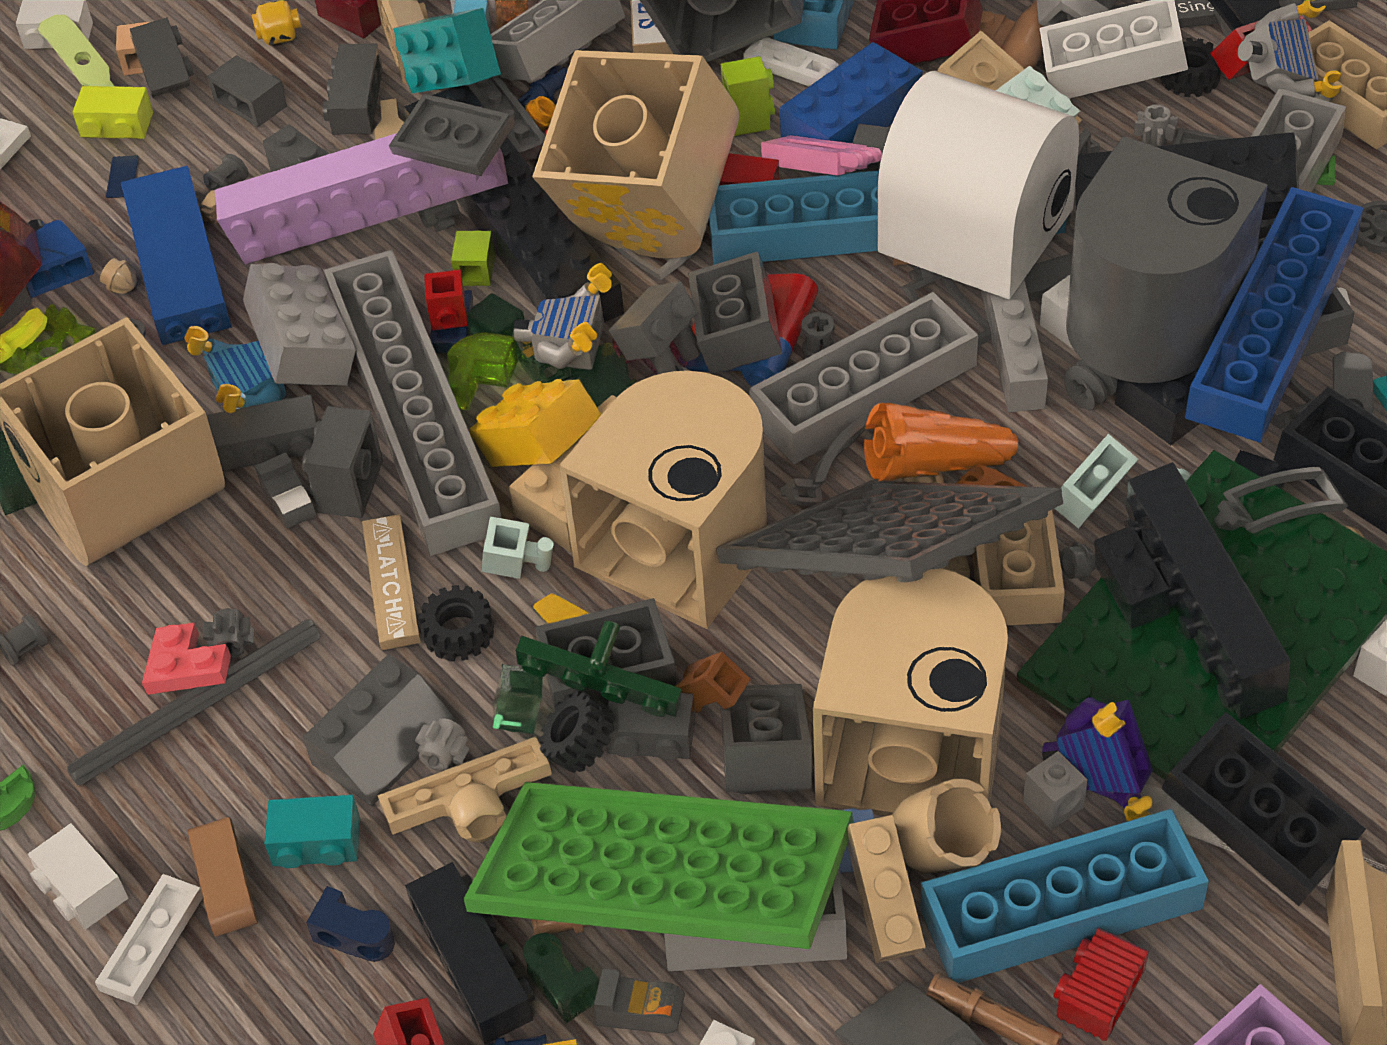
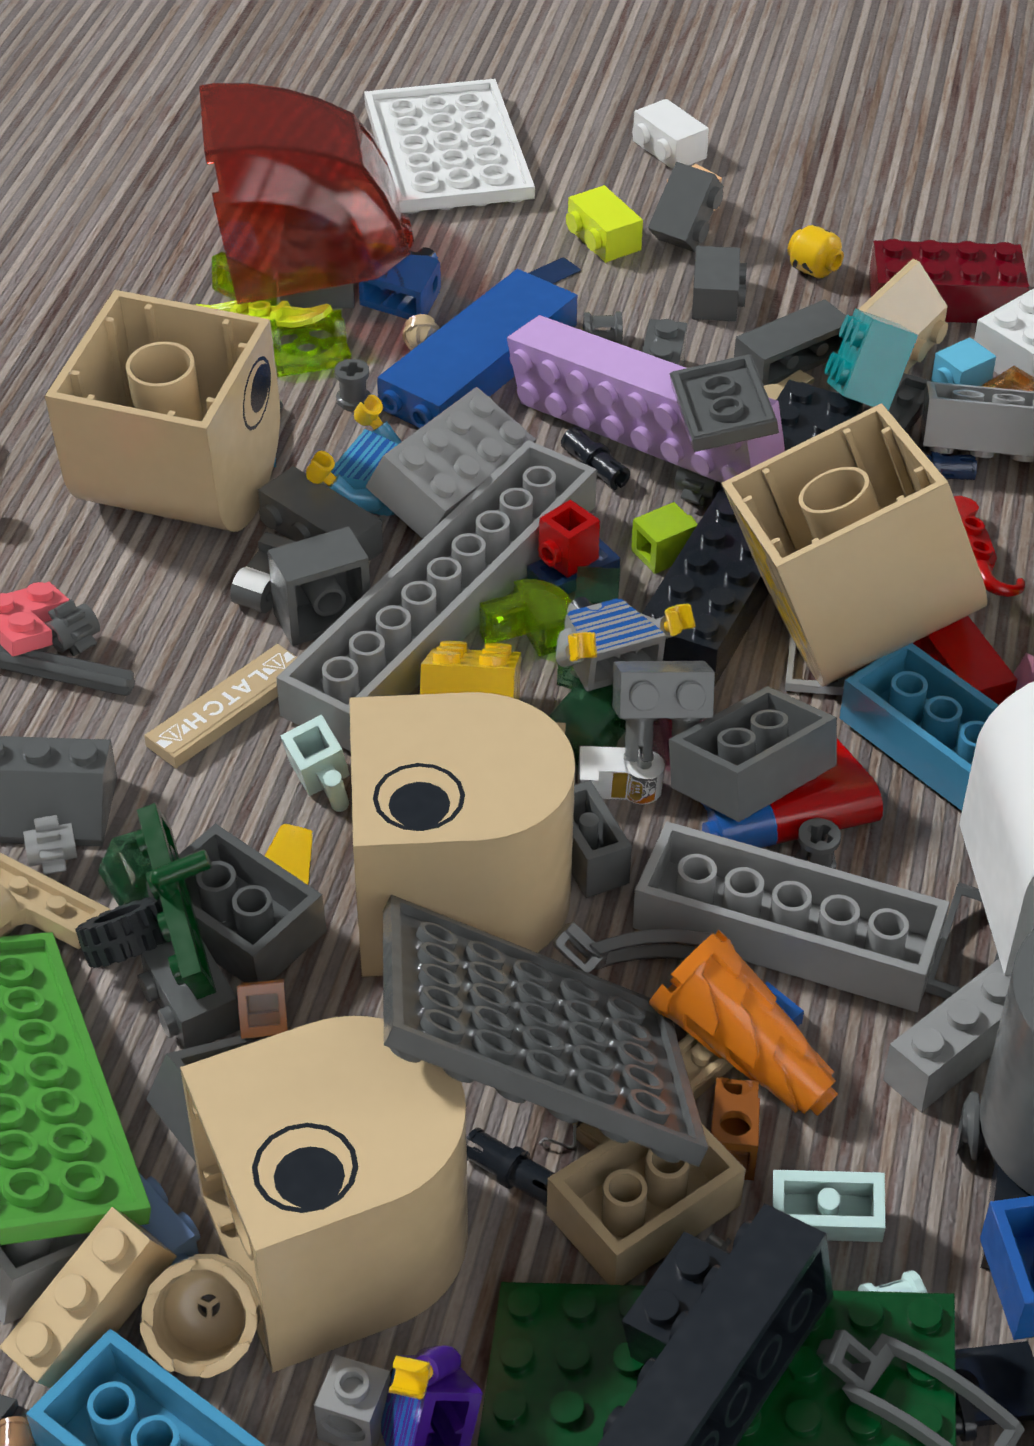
camera: 50 degrees right, 5 degrees down
(73, 47) = (644, 156): yellowish green piece -> none
(348, 251) = (596, 456): none -> black pin
(452, 605) = (214, 795): black tyre -> none

